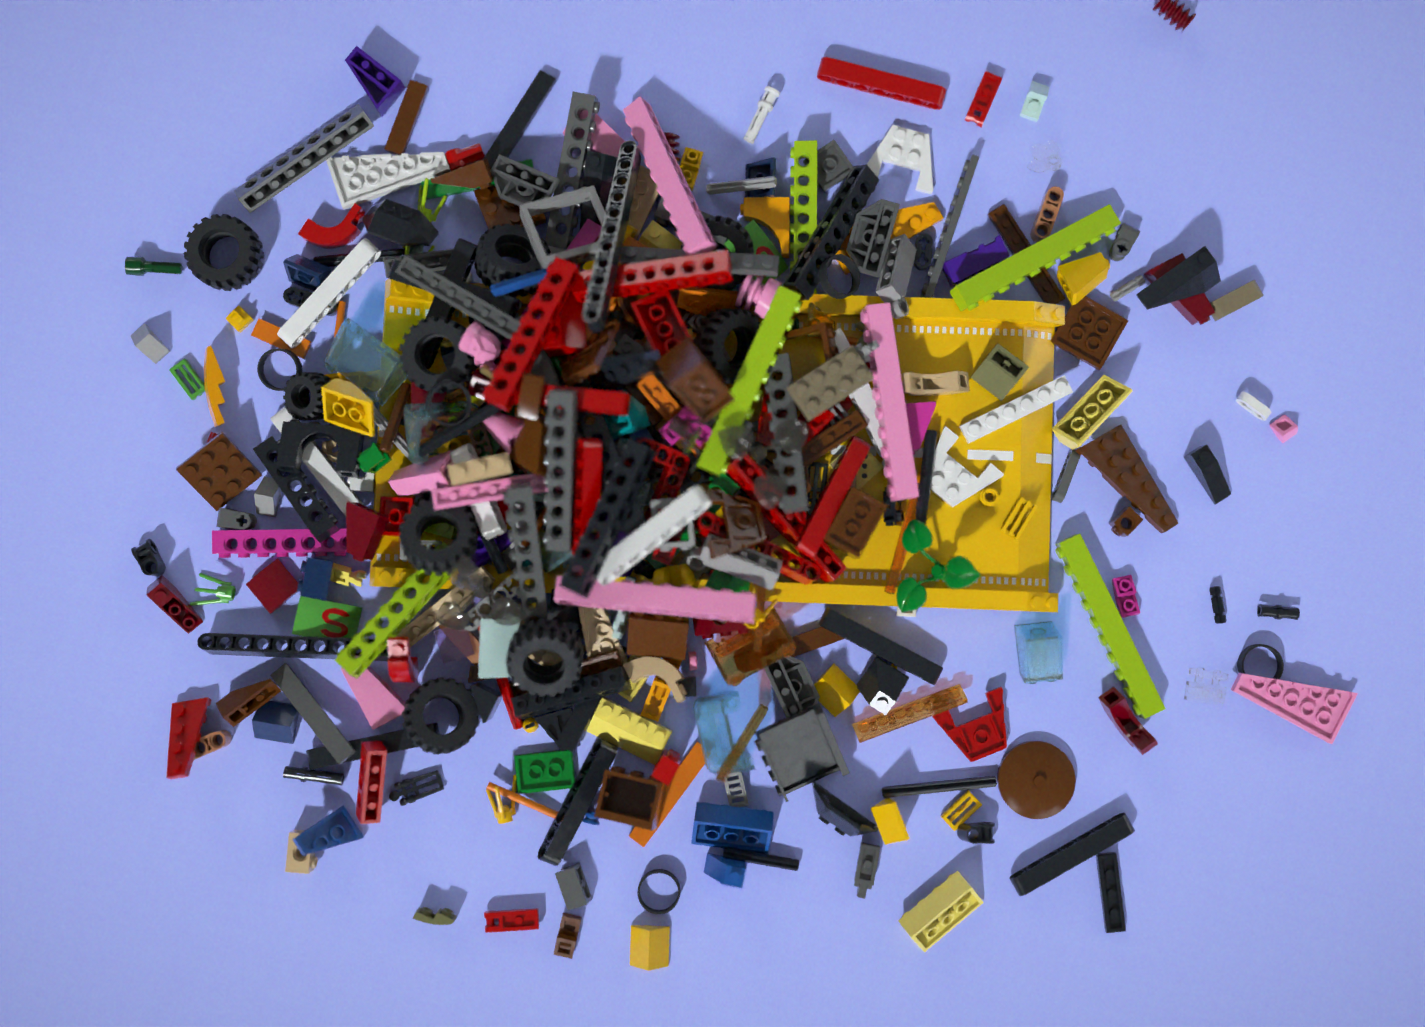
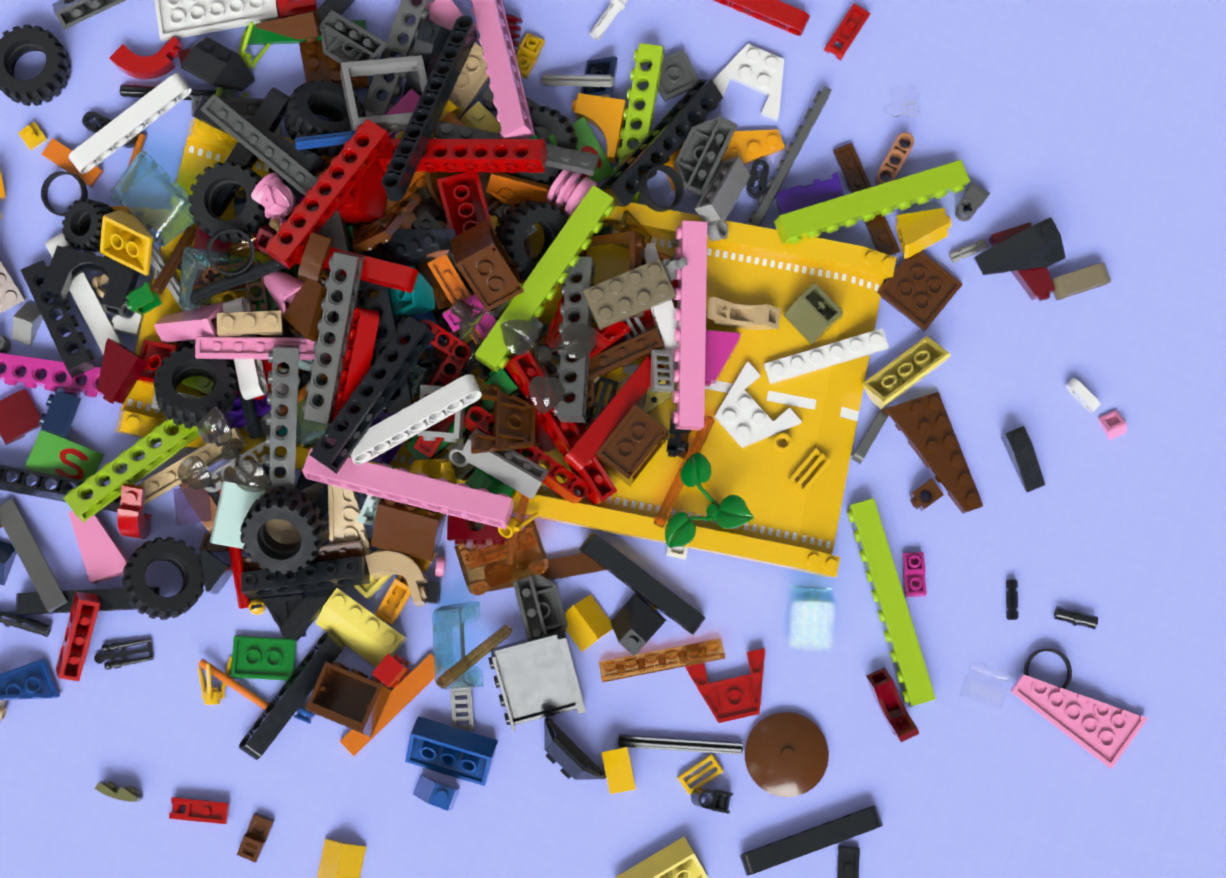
camera: 15 degrees right, 5 degrees down
(305, 272) = (109, 98): dark blue slope -> none
(344, 575) = (90, 417): light yellow plate -> none
(573, 886) = (271, 785): dark grey hinge -> none
(644, 569) = (401, 456): black pin -> none
(654, 911) = (339, 807): black tyre -> none
(761, 859) = (476, 789): black axle -> none
(866, 868) = (587, 818): dark grey hinge -> none
(878, 454) = (654, 385): none -> light grey slope
(926, 476) = (718, 409): black axle -> none
(1034, 101) = (901, 42): light aqua slope -> none

